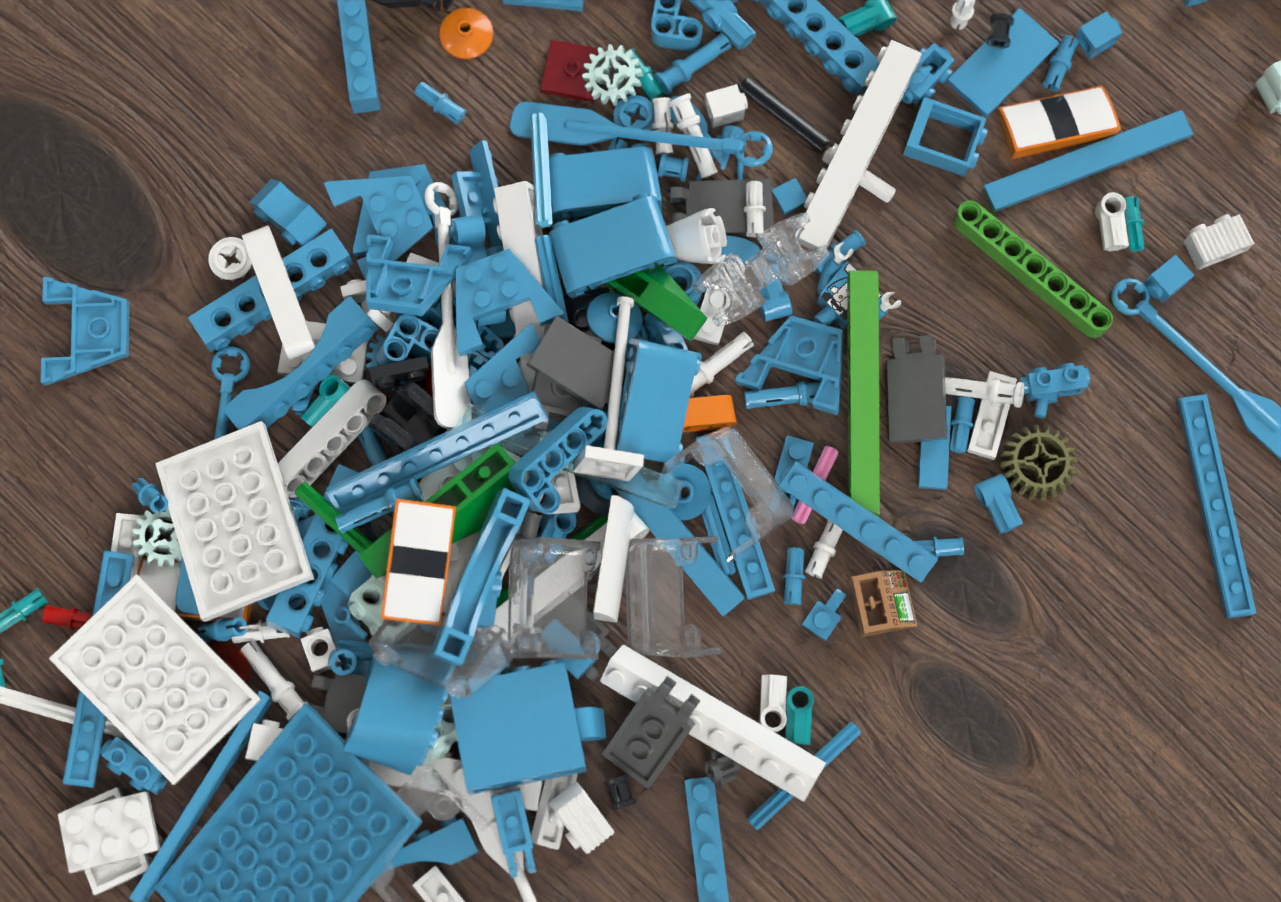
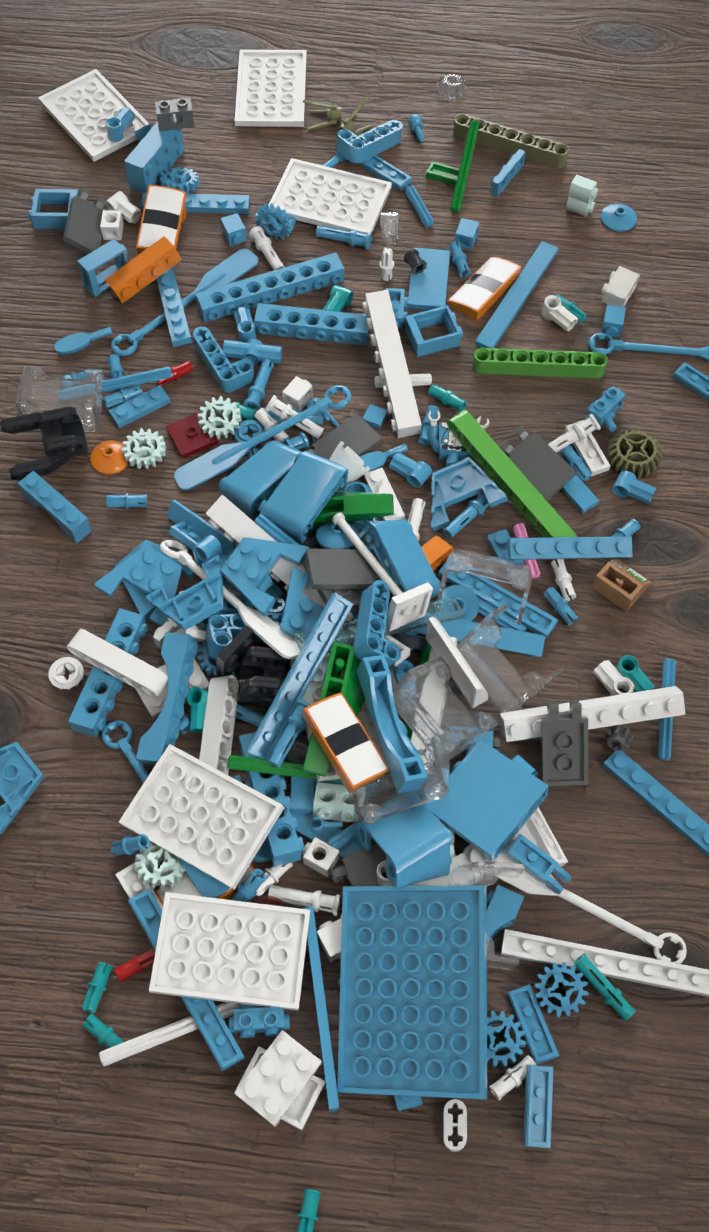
camera: 35 degrees left, 15 degrees down
(287, 213) = (92, 618): dark azure brick -> none
(336, 668) = (334, 848): dark azure bush -> none
(493, 55) = (144, 448): none -> light aqua gear
(541, 172) = (222, 489): medium azure axle -> none
(580, 817) = (566, 828): white brick -> none
(620, 792) = (574, 798): black bush -> none
(743, 280) = (392, 465): clear piece -> none
(754, 208) = (363, 431): white axle -> none
(784, 114) = (336, 378): black axle -> none
(823, 617) = (596, 616): dark azure plate -> none
(889, 234) = (447, 397): none -> teal pin

